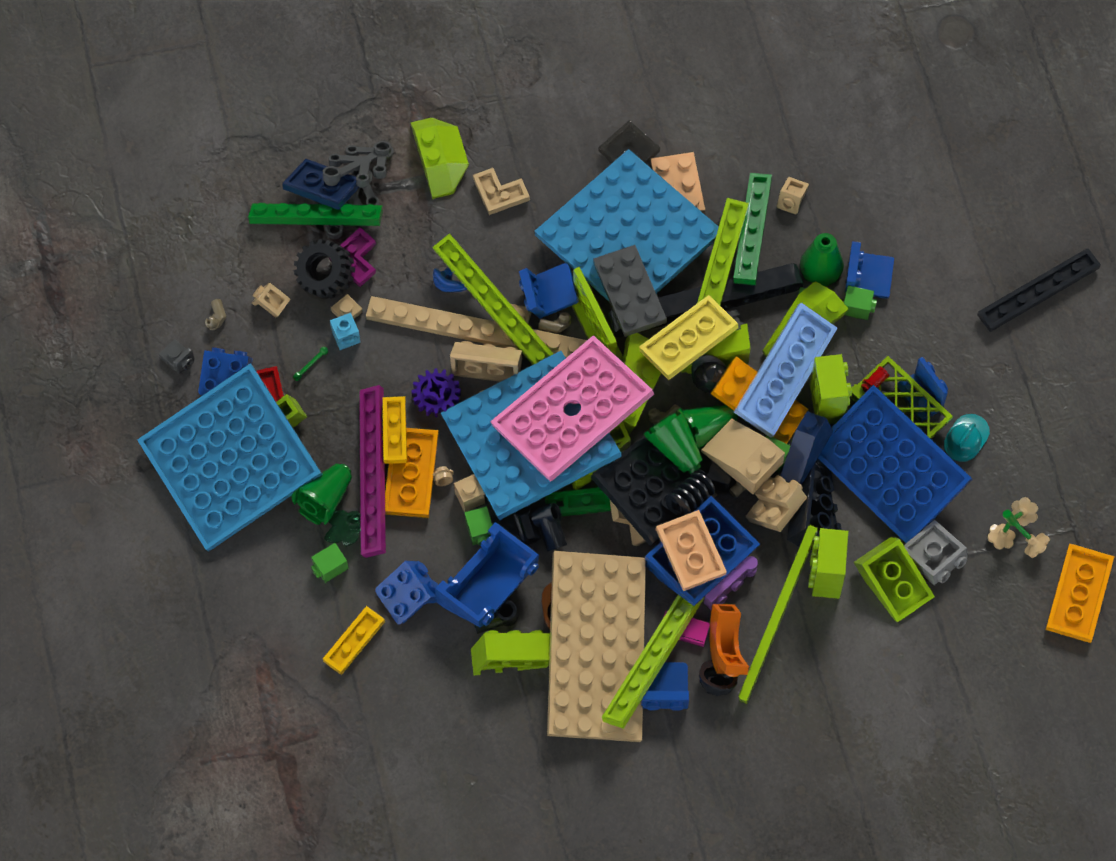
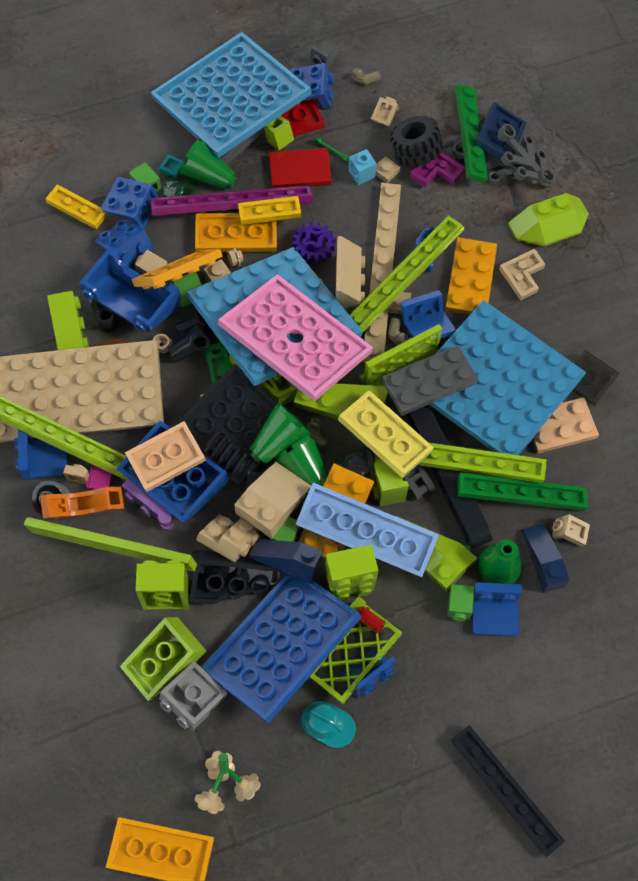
camera: 80 degrees right, 0 degrees up
(310, 535) = (171, 166): none -> teal tile
(332, 399) = (300, 168): none -> red tile
(357, 579) = (130, 200): none -> blue bracket
(446, 562) = (148, 262): none -> tan brick
(464, 526) = (175, 269): none -> light orange plate
(496, 242) = (470, 275): none -> light orange plate
(547, 556) = (162, 338): none -> tan plate
(689, 650) = (76, 474): none -> tan plate
(826, 218) = (546, 558): none -> dark blue slope

